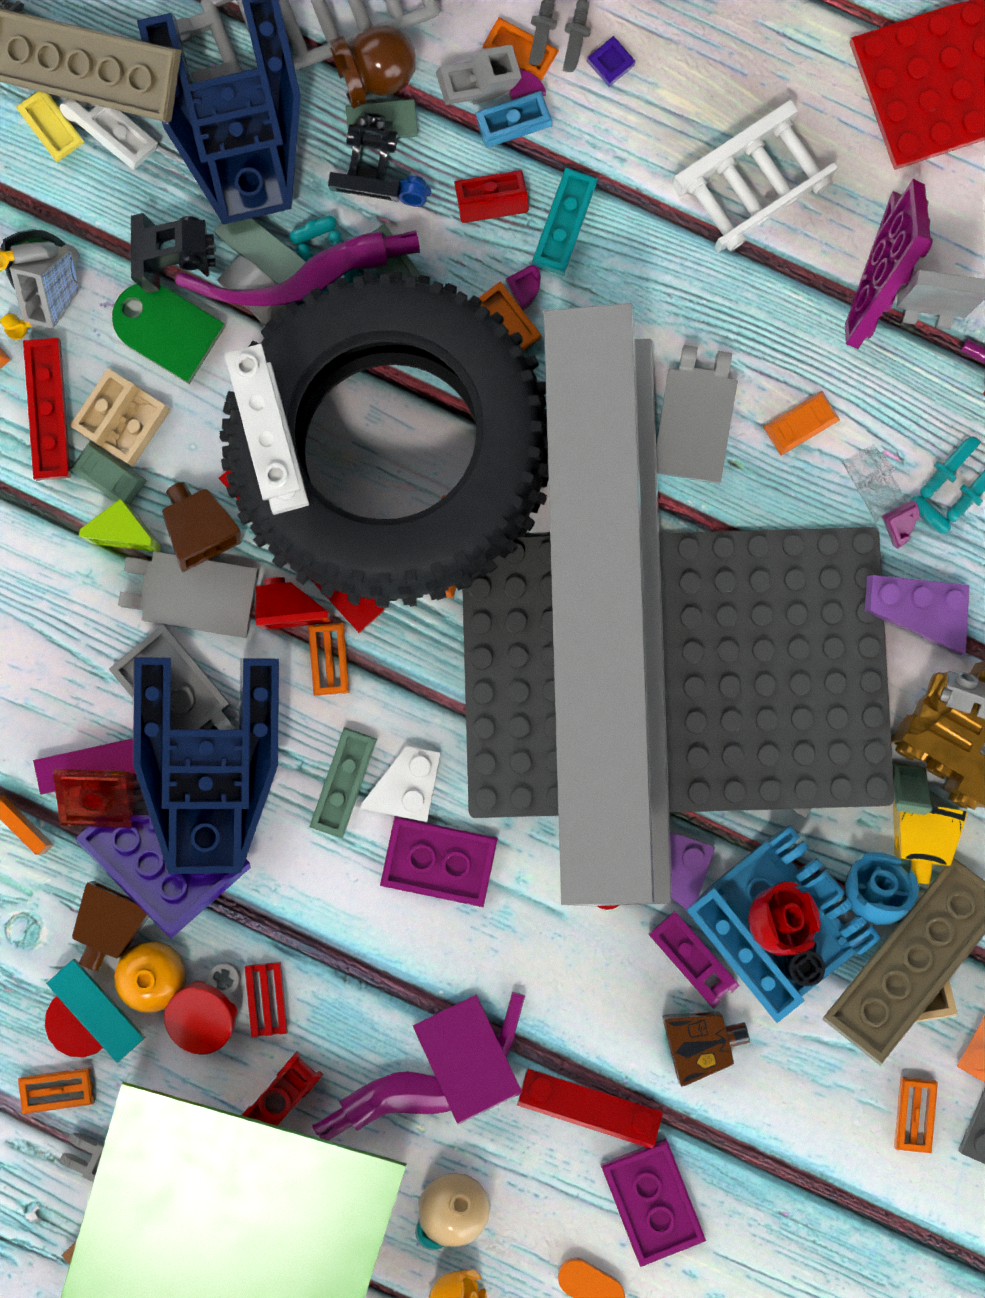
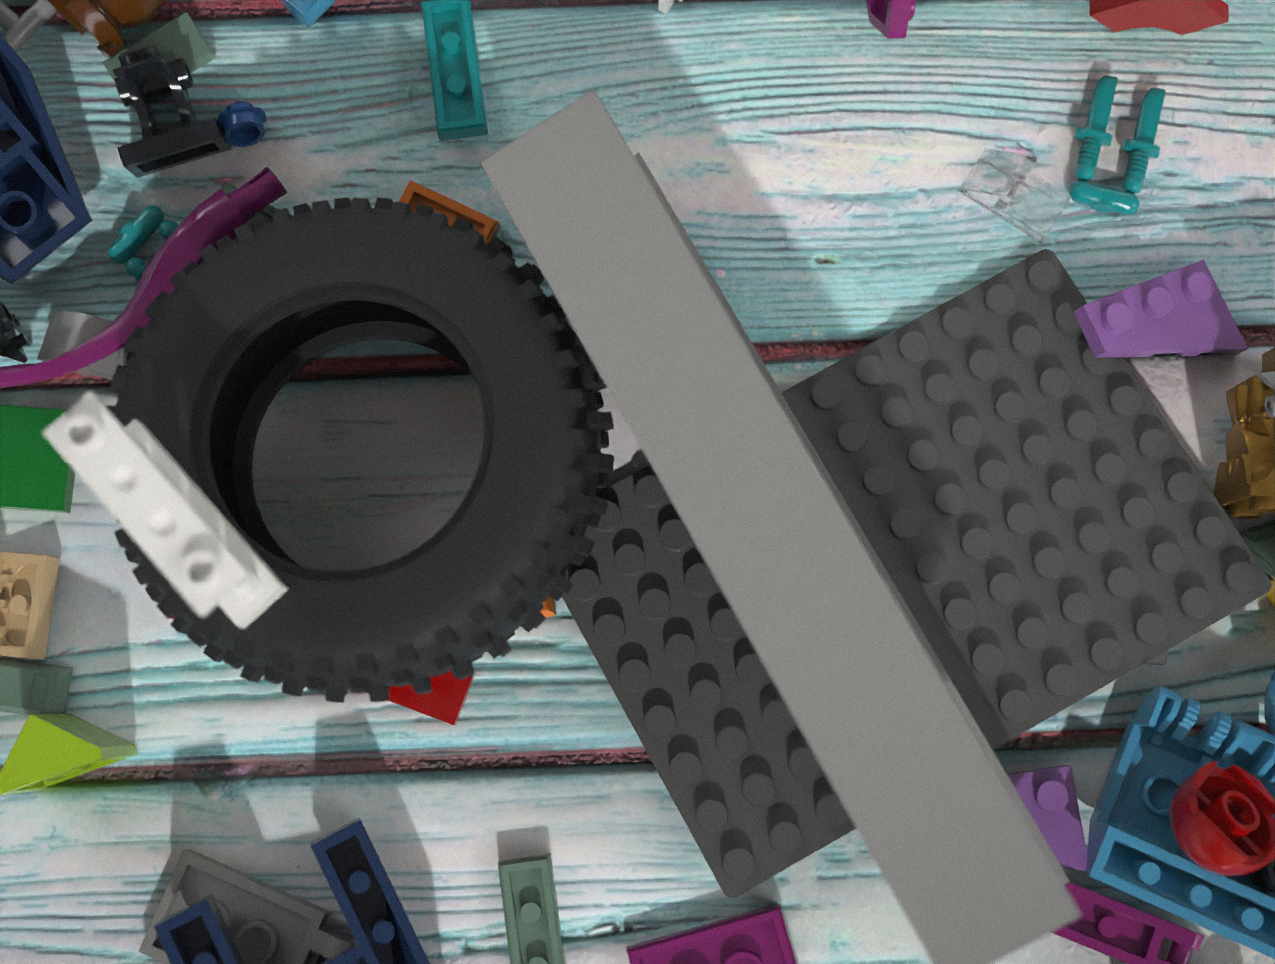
camera: 25 degrees left, 5 degrees down
(198, 526) = (165, 695): reddish brown torso -> none
(204, 598) = (205, 787): light grey tile -> none
(260, 248) = (73, 287): sand green tile -> none
(286, 606) = (336, 740): red slope -> none
(330, 689) = (409, 742): orange tile -> none
(406, 785) = (621, 899): white wing -> none
(491, 196) = (347, 83): red slope -> none
(524, 285) = (444, 171): magenta tile -> none
(696, 419) = (748, 226): light grey tile -> none
(801, 423) = (882, 167): orange tile -> none
(901, 523) = (1075, 225): magenta tile -> none

